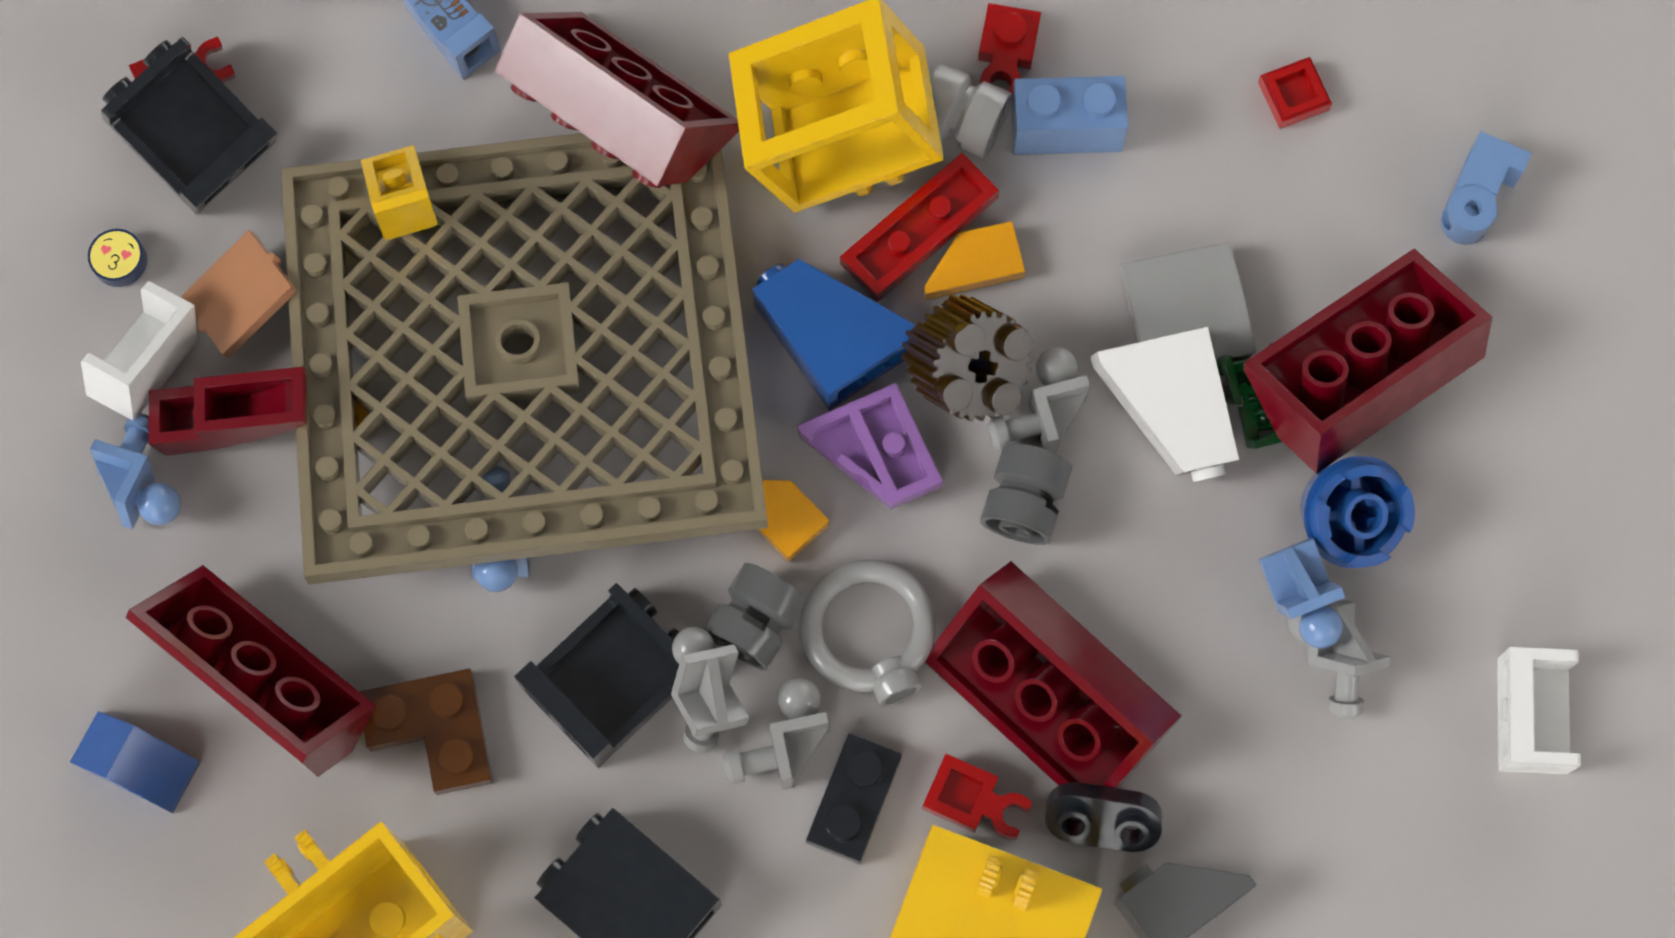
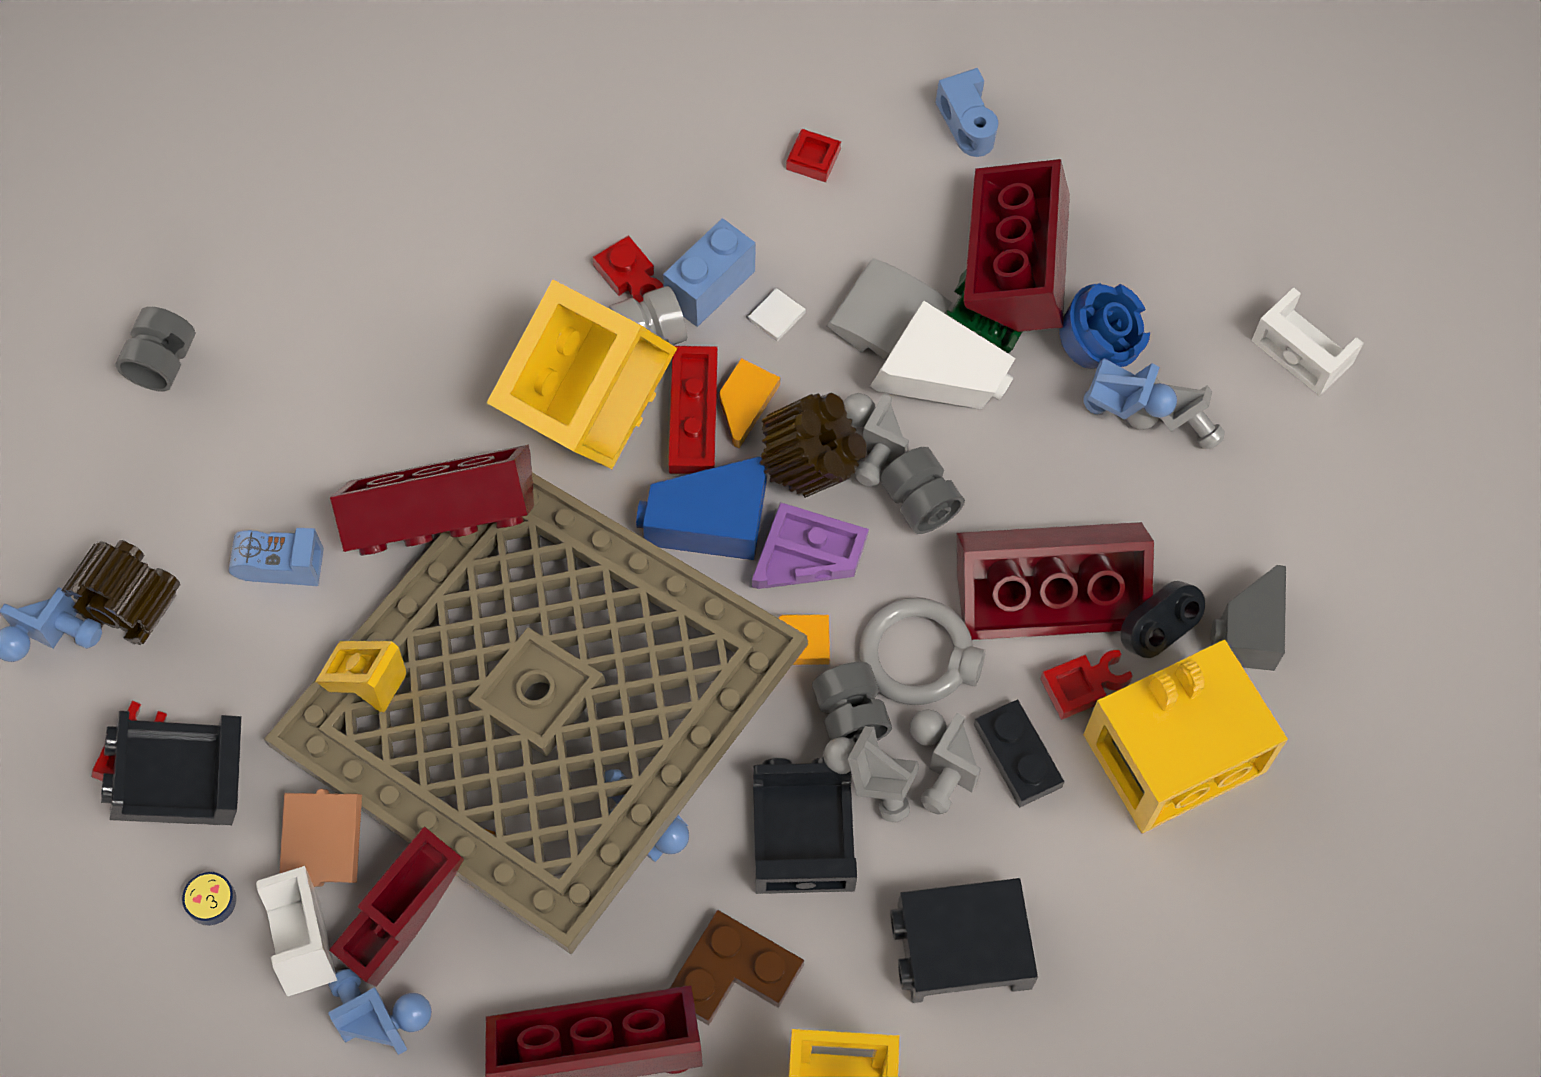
camera: 50 degrees left, 10 degrees down
(1093, 210) = (777, 314): none -> white piece

